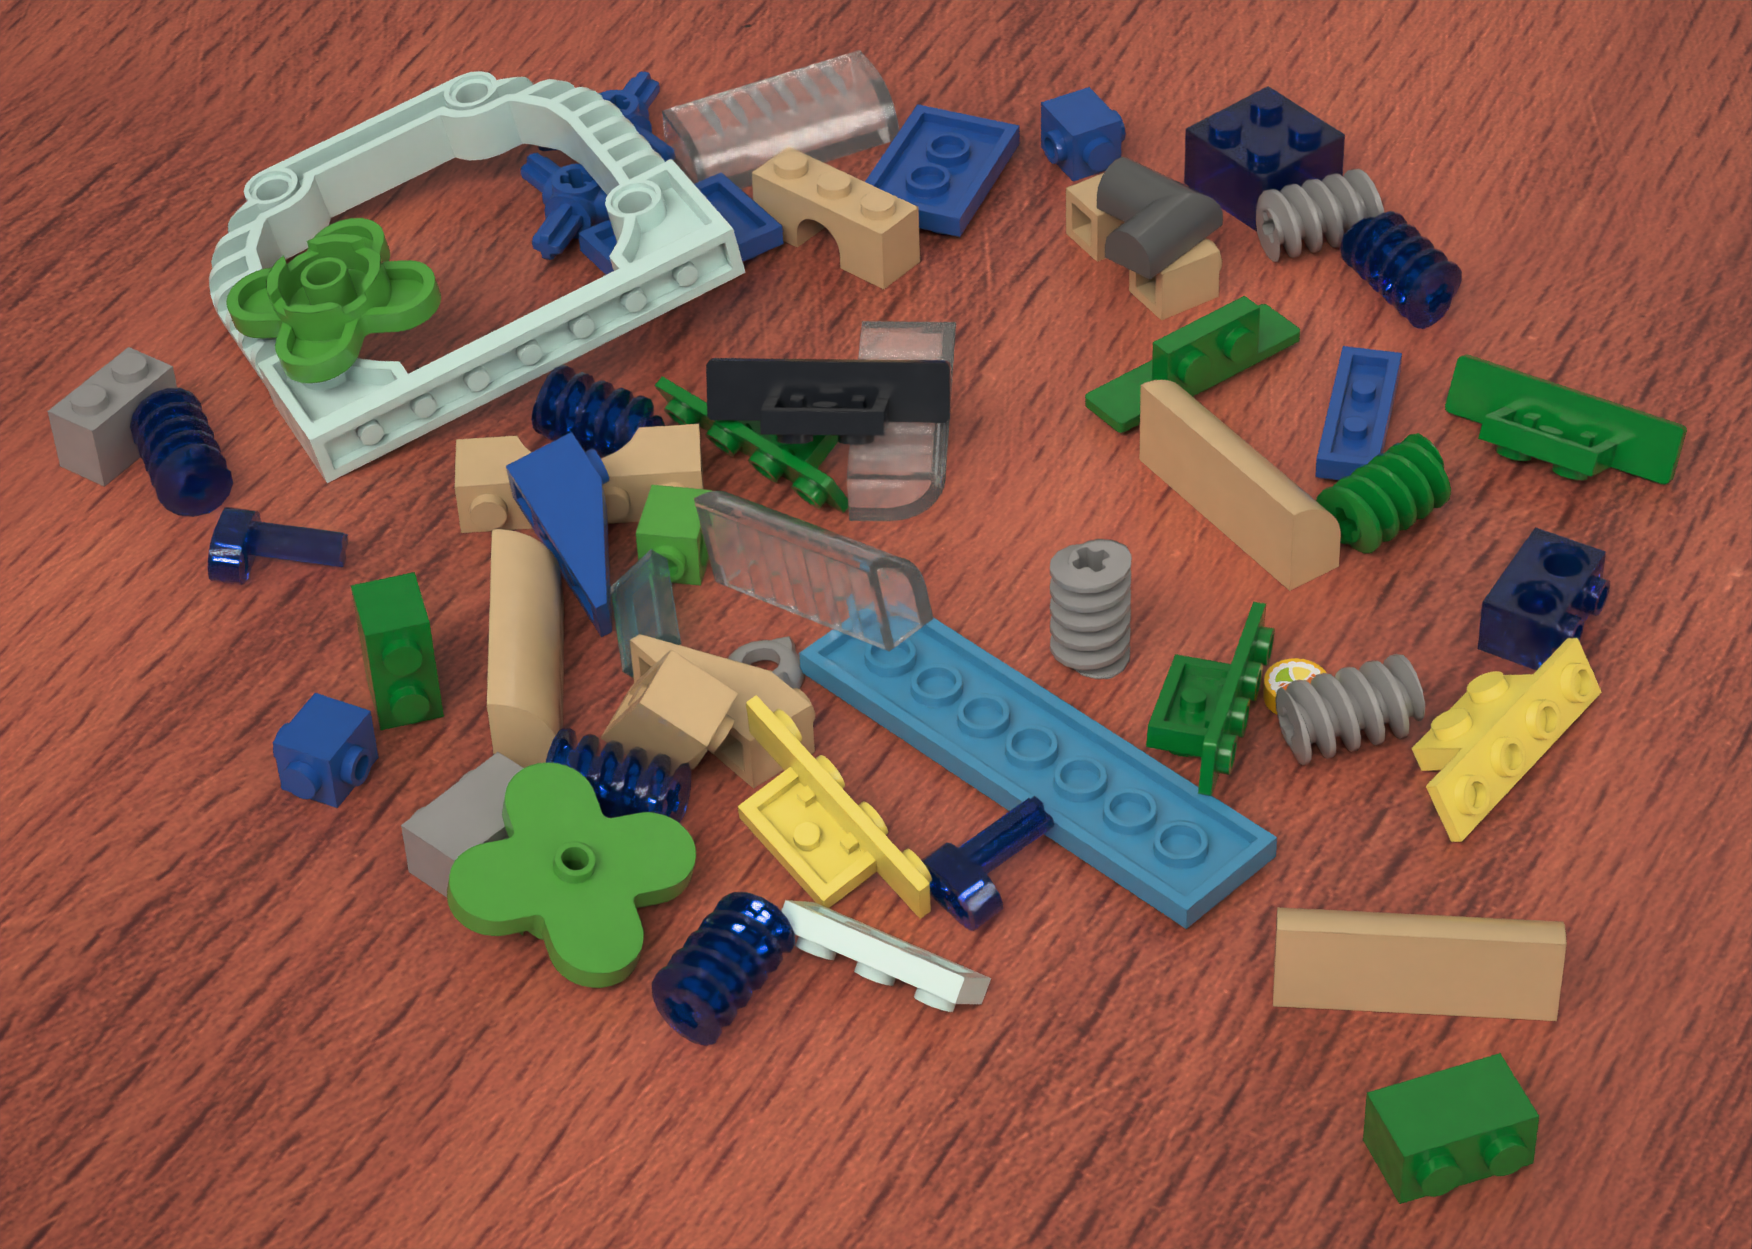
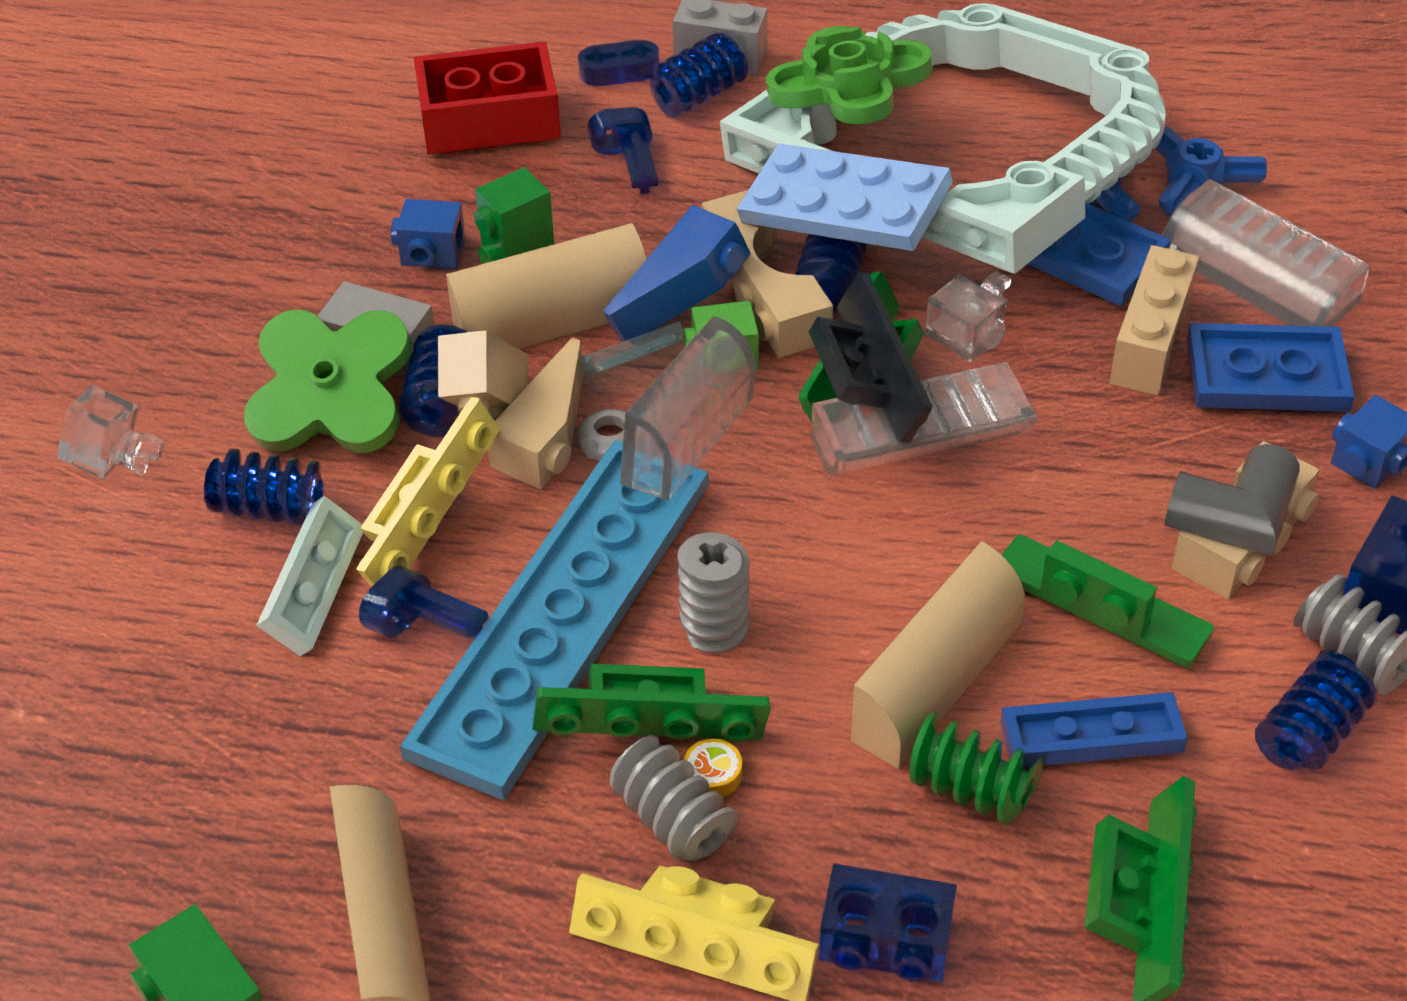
camera: 70 degrees right, 5 degrees up
(86, 512) = (617, 62): none -> clear blue beam
(98, 641) = (487, 97): none -> red brick
(546, 1110) = (102, 434): none -> clear brick
(561, 349) = (846, 196): none -> light blue plate
(748, 330) = (968, 315): none -> clear brick

